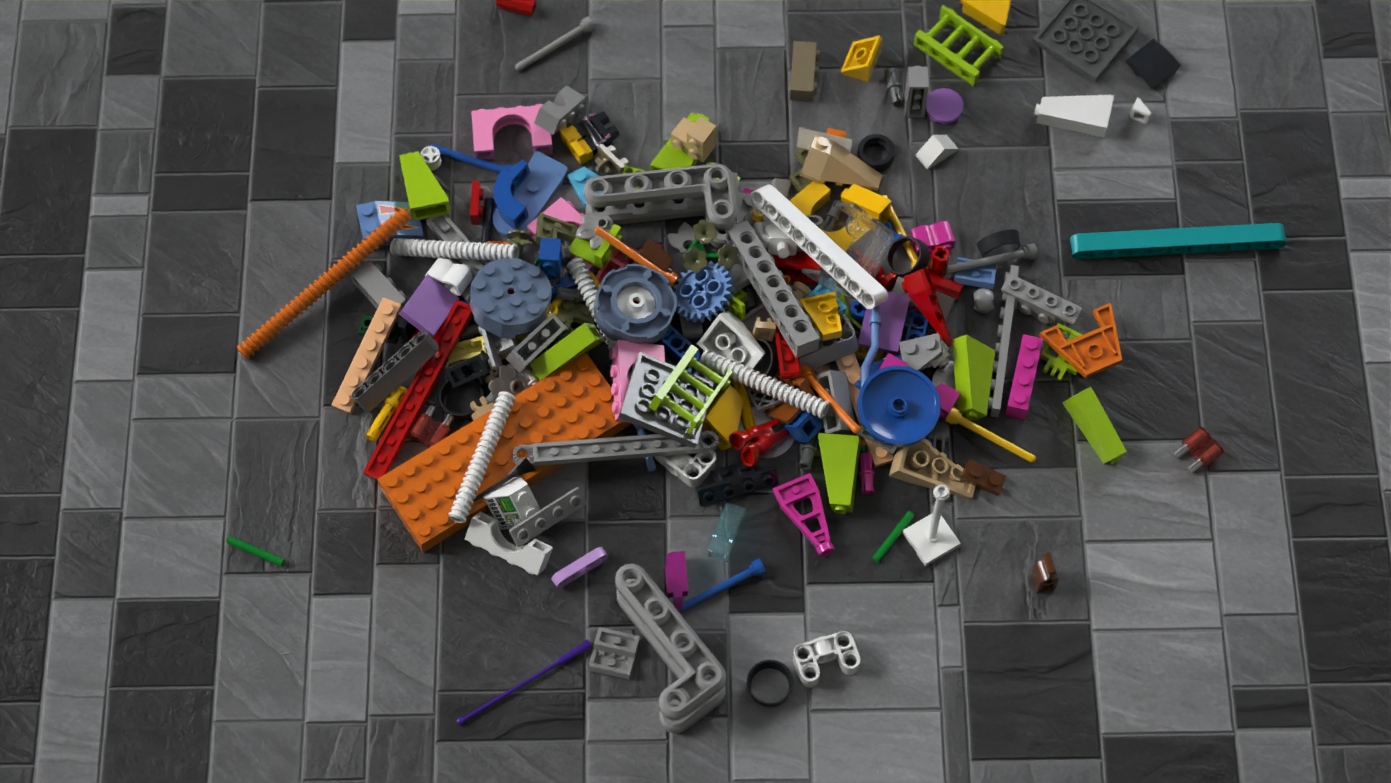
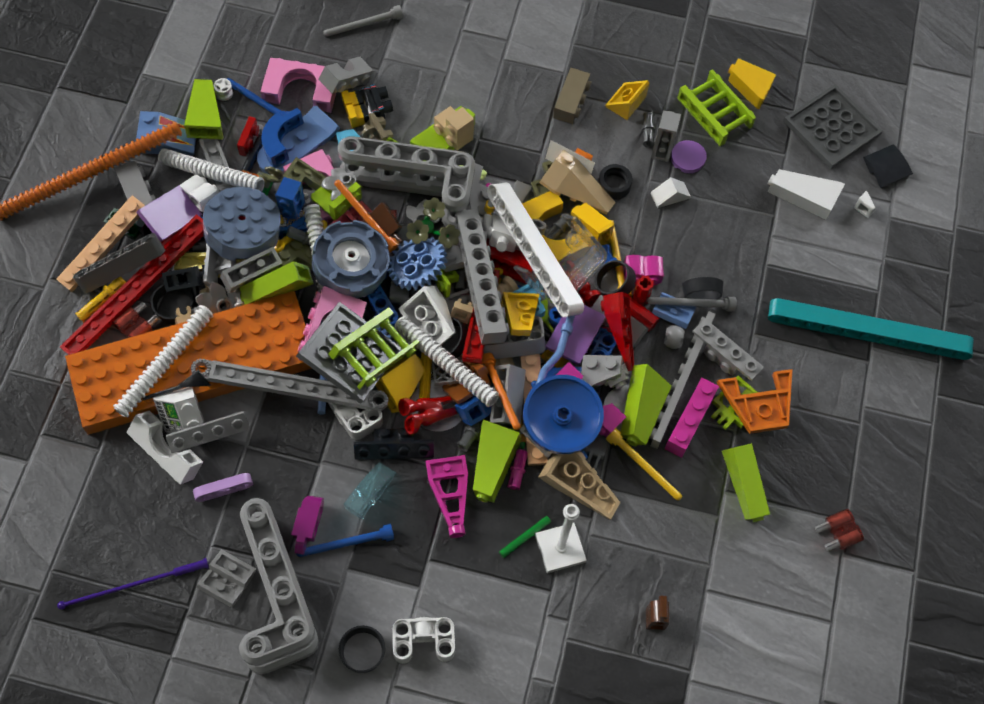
camera: 10 degrees right, 0 degrees up
(983, 477) = (626, 502): reddish brown plate -> none

